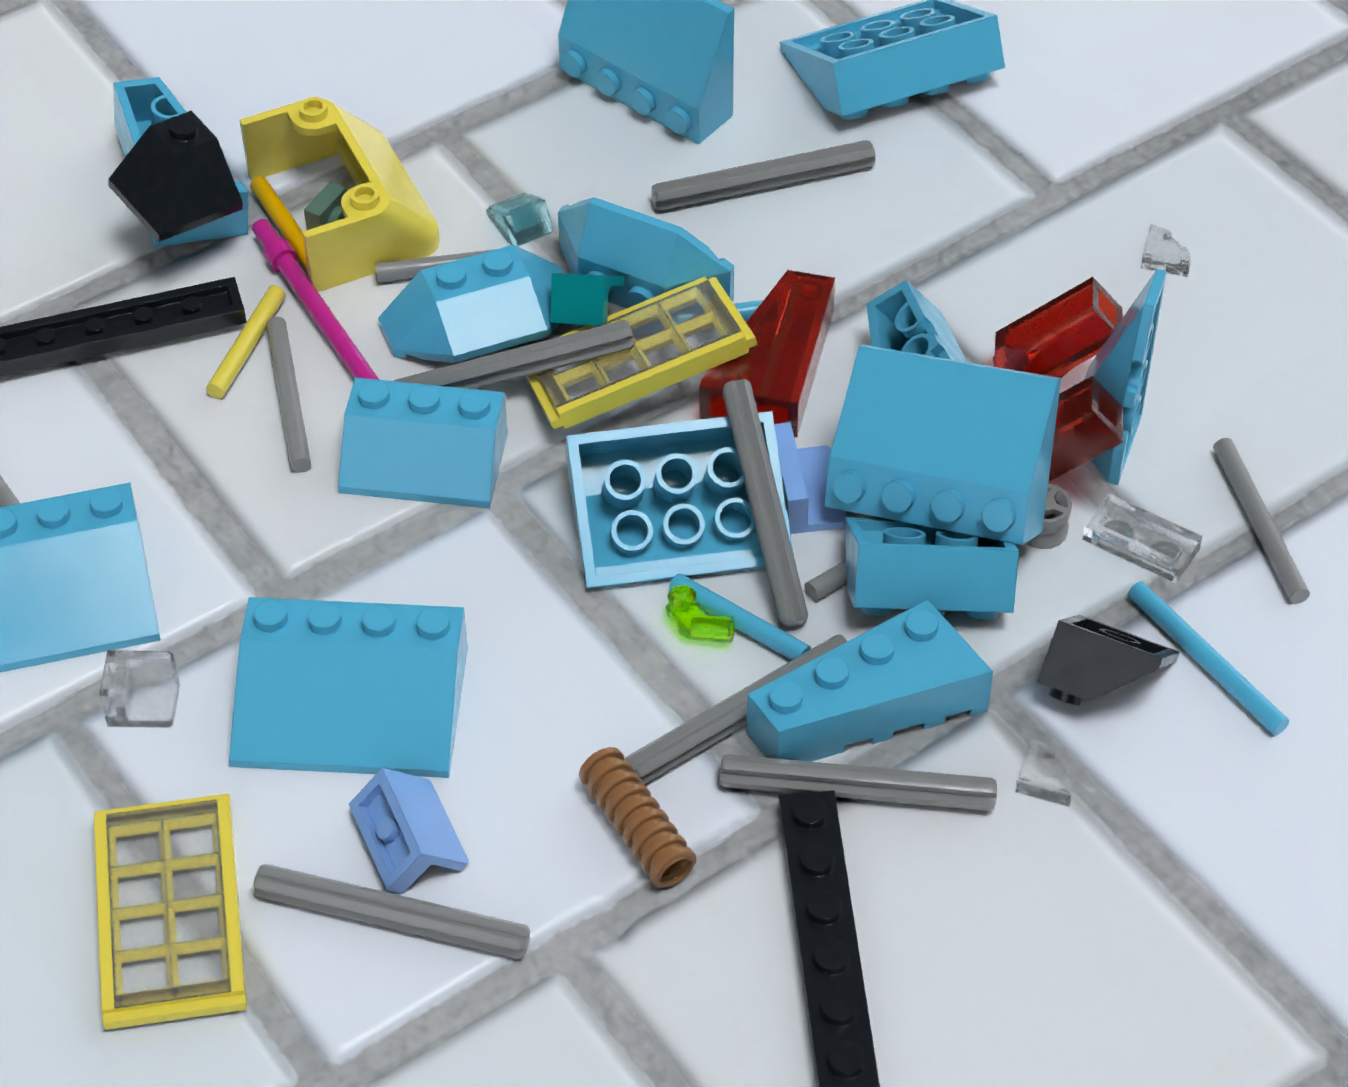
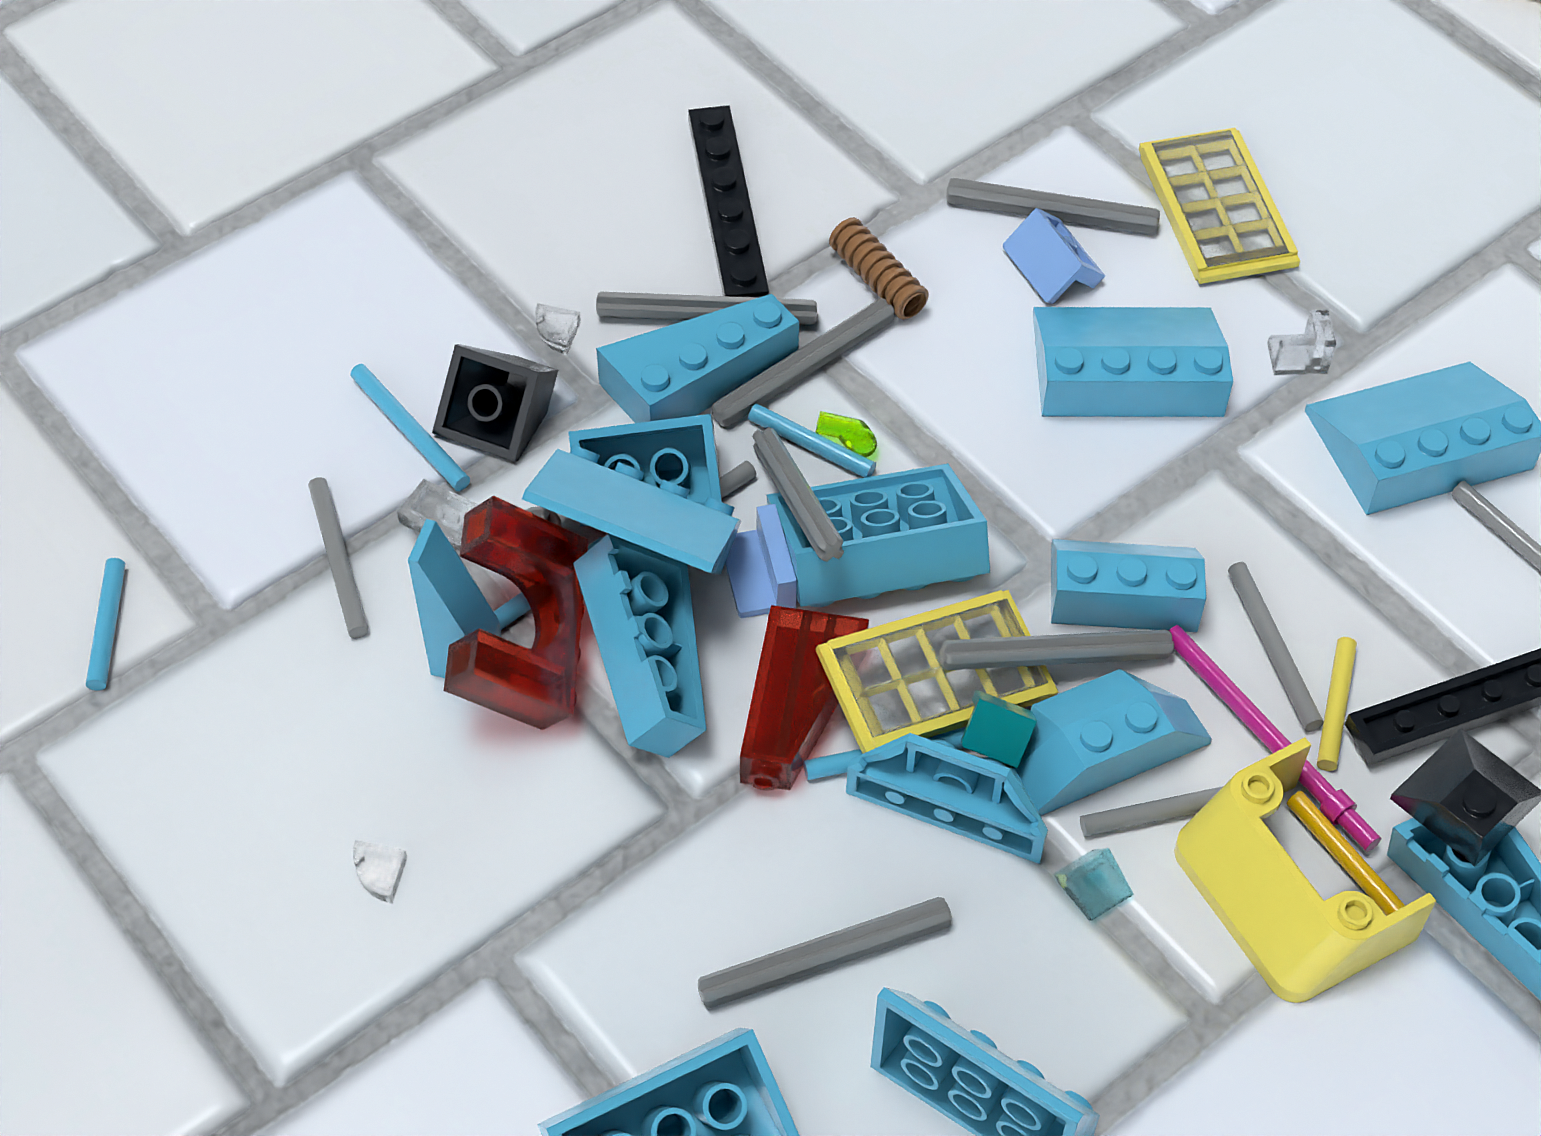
camera: 175 degrees right, 5 degrees up
(325, 206) = (1302, 842): sand green plate -> none

